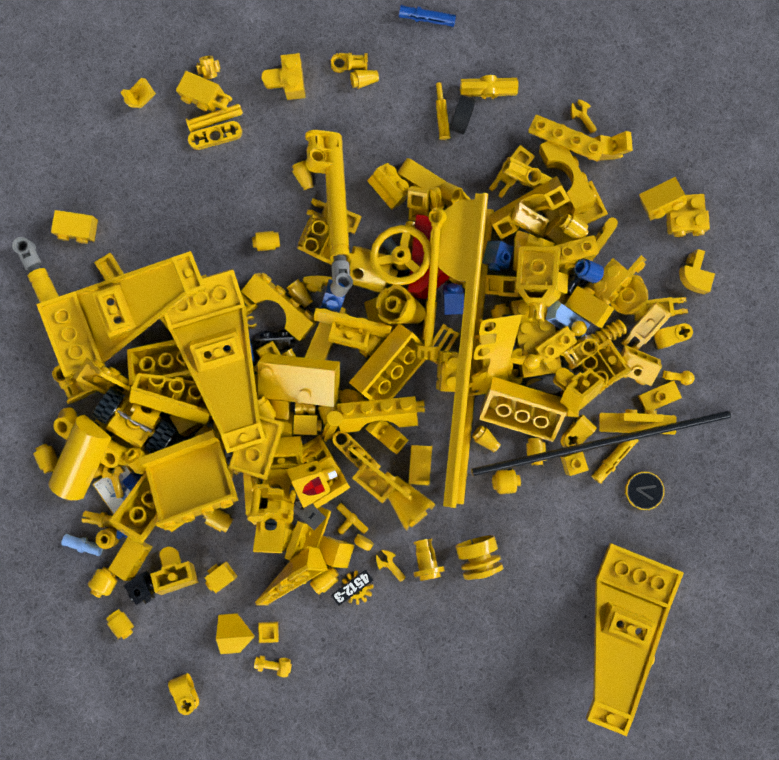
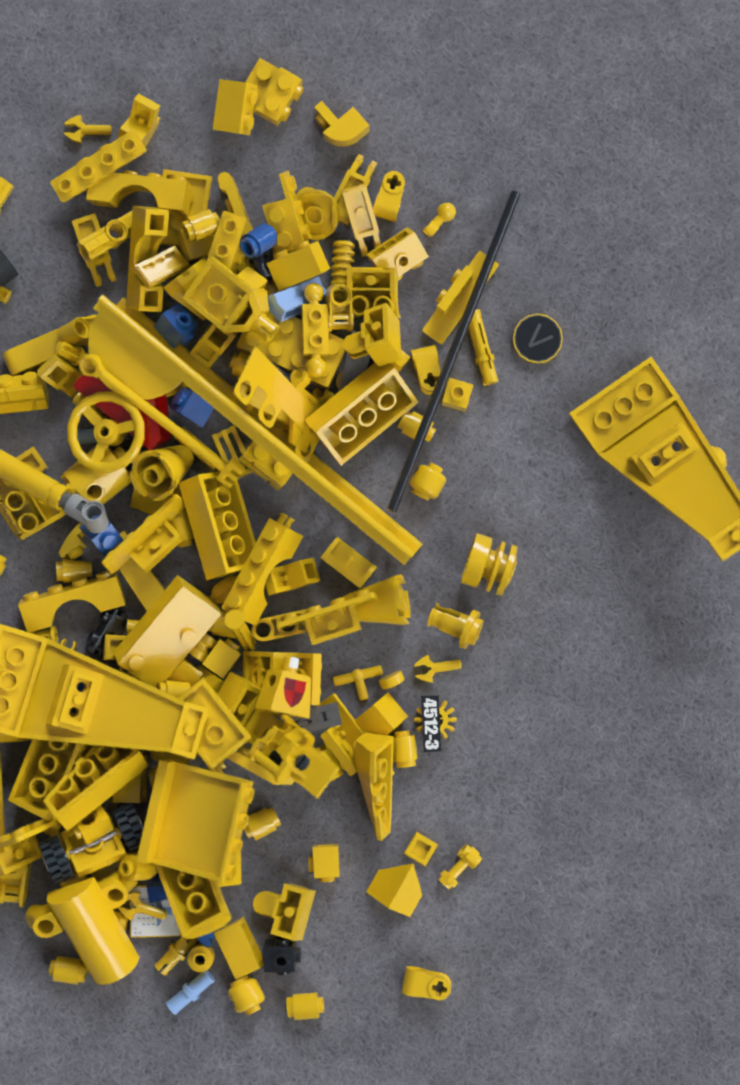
camera: 55 degrees left, 0 degrees up
(485, 438) = (365, 473): yellow cone -> none
(660, 396) = (447, 253): yellow plate -> none

